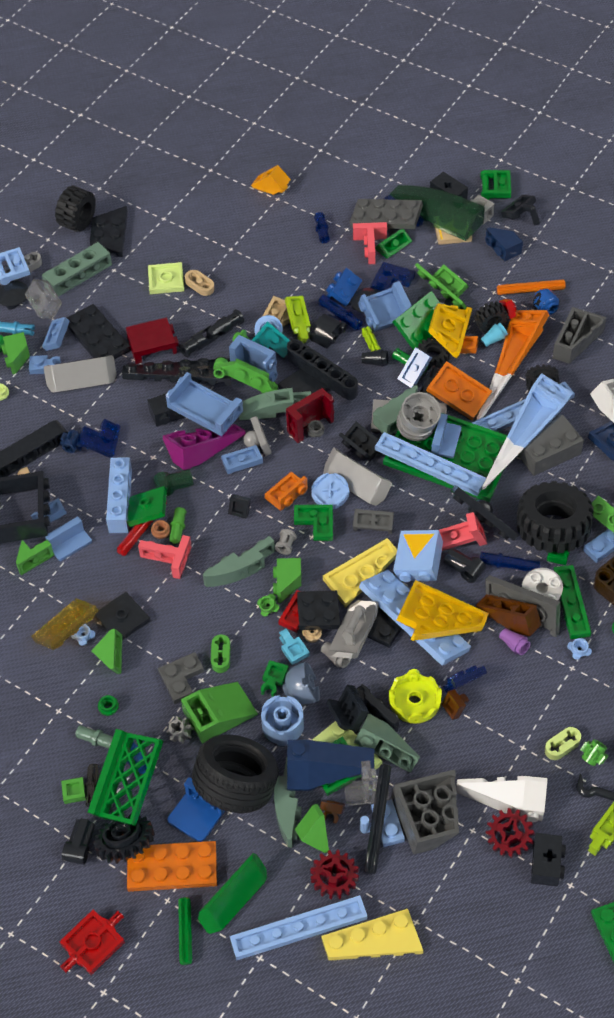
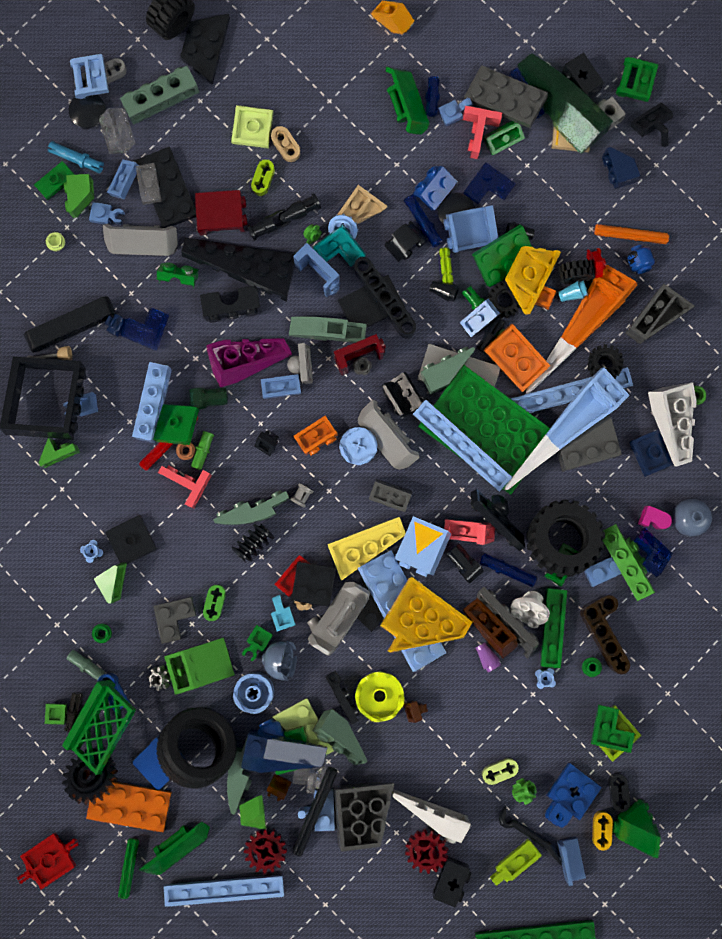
camera: 10 degrees right, 30 degrees up
(65, 624) = (74, 541): clear yellow plate -> none
(68, 539) = (95, 441): medium blue panel -> none
(77, 848) = (50, 770): black piece -> none
(80, 328) = (148, 183): none -> clear plate
(129, 391) = (186, 274): none -> green piece
(188, 310) = (258, 176): none -> lime beam
(203, 405) = (253, 318): medium blue panel -> none
(244, 373) = (303, 292): bright green plate -> none
(246, 589) = (253, 542): none -> black piece
(262, 603) = (265, 566): bright green plate -> none
(288, 577) = (294, 537): bright green slope -> none
(298, 317) = (377, 220): lime hinge -> none
(308, 239) = (410, 99): none -> green piece
(317, 515) = (342, 476): green plate -> none
(342, 235) = (452, 112): none -> medium blue plate
(349, 709) = (314, 698): black bracket -> none
(373, 938) = (288, 913): light yellow wing -> none
(421, 408) = (473, 400): light grey wheel -> none
(445, 438) = (486, 418): medium blue panel -> none
(447, 281) = (545, 210): bright green bracket -> none
(461, 678) = (424, 691): clear blue plate -> none

